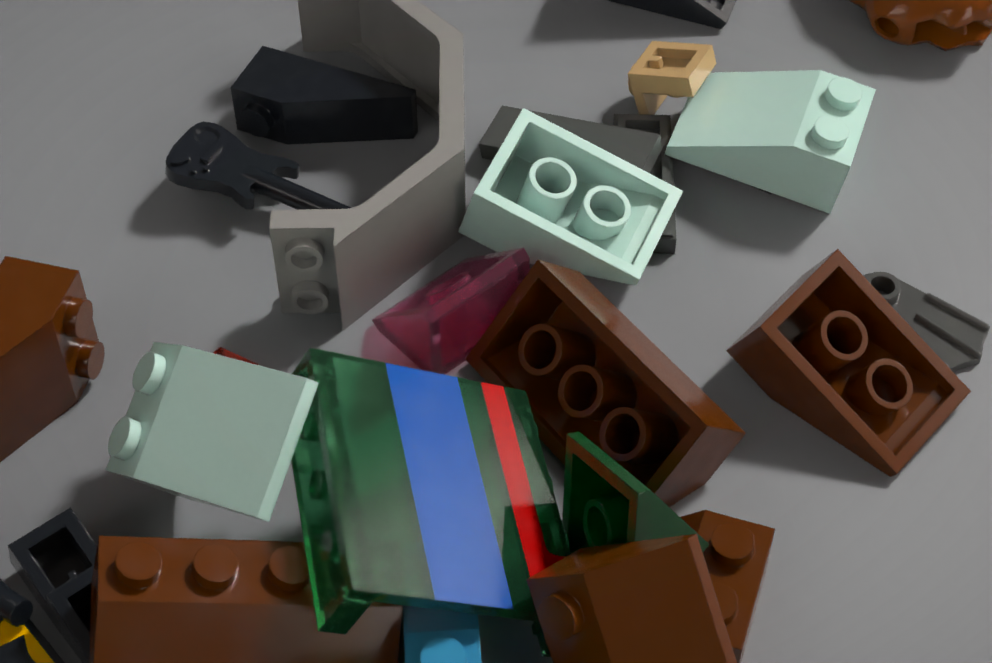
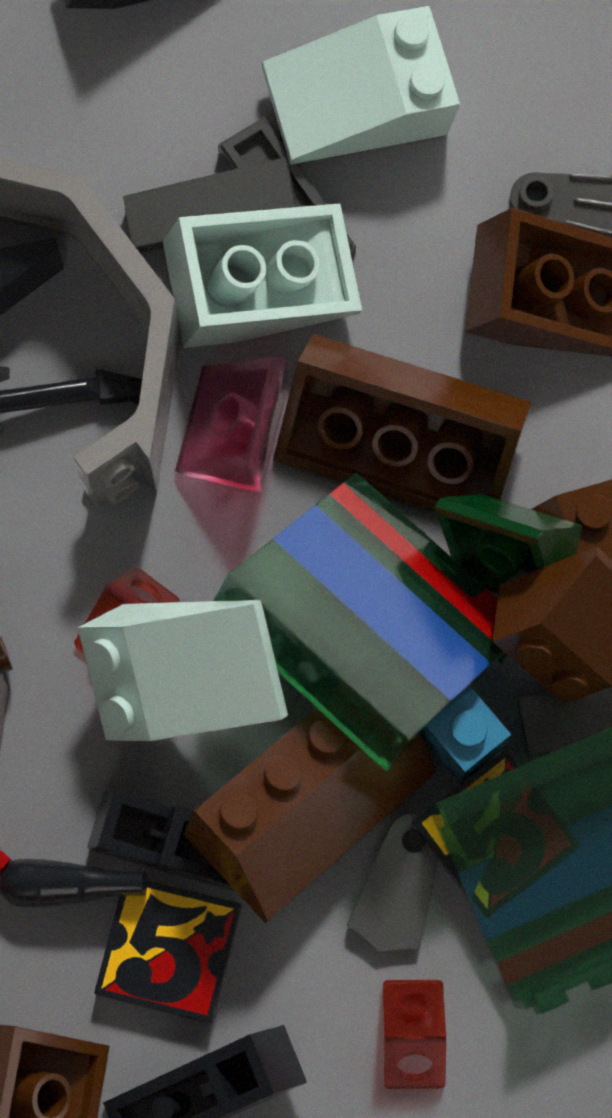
camera: 35 degrees left, 25 degrees up
(670, 71) = (244, 80): tan bracket -> none

